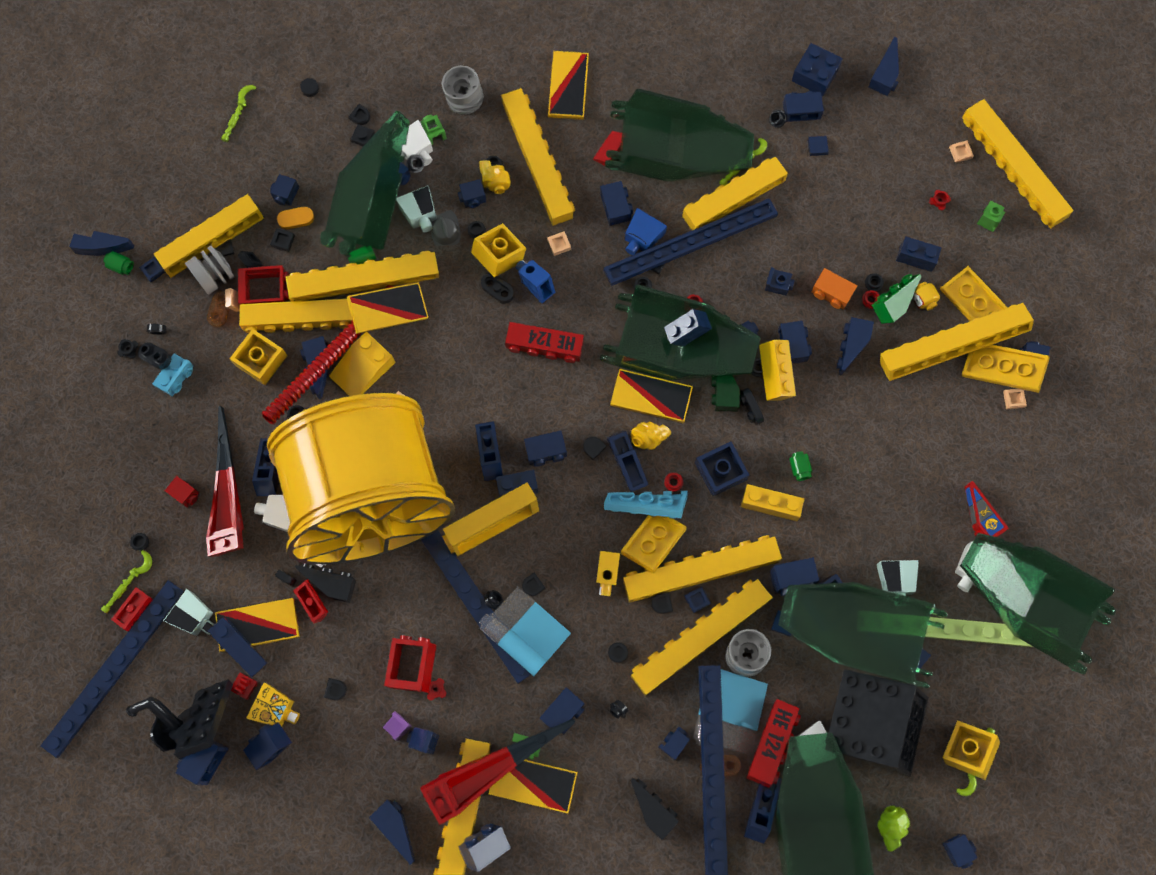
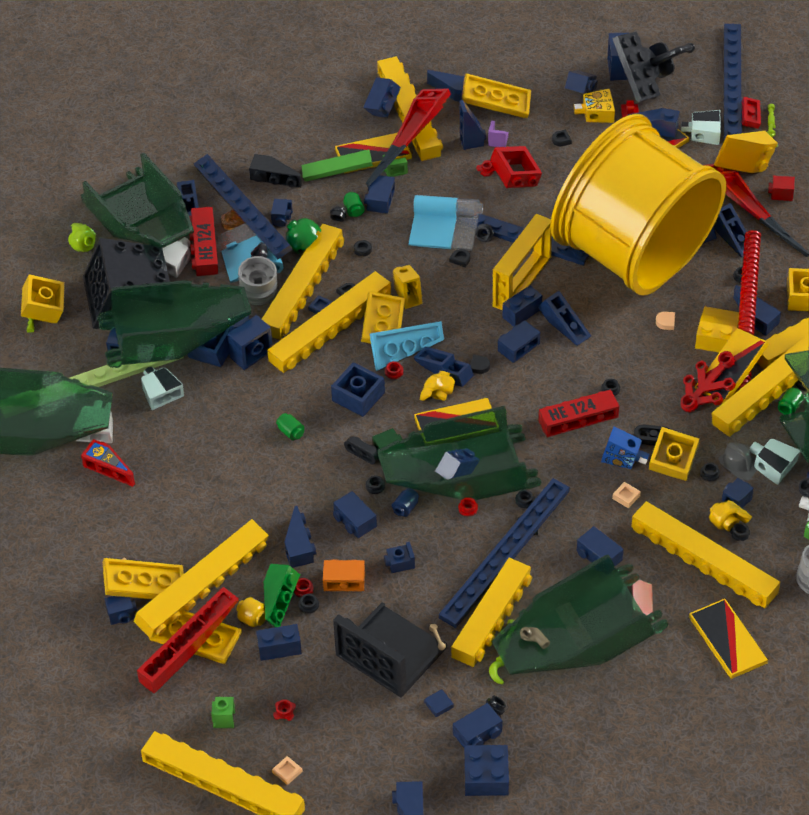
camera: 150 degrees right, 25 degrees down
(139, 542) = (784, 150): black piece -> none
(180, 541) = (746, 152): none -> yellow slope
(363, 782) = (496, 96): none -> yellow tile
(421, 305) = (706, 384): none -> red plant
(498, 351) = (611, 383): none -> black plate
(583, 779) = (337, 165): none -> bright green tile
(596, 713) = (353, 204): none -> green brick
(643, 232) = (555, 538): blue torso -> none
(673, 689) = (301, 234): none -> green cylinder
(715, 154) = (535, 635): none -> dark tan arm
(731, 683) = (260, 250): none -> black tile
(772, 502) = (299, 388): yellow brick -> none
(777, 370) = (356, 479): yellow brick -> none
(785, 211) = (433, 627): none -> tan hinge
(838, 200) = (386, 648): none -> black bracket
(960, 851) = (22, 246): dark blue brick -> none
(998, 285) = (186, 641): none -> red slope

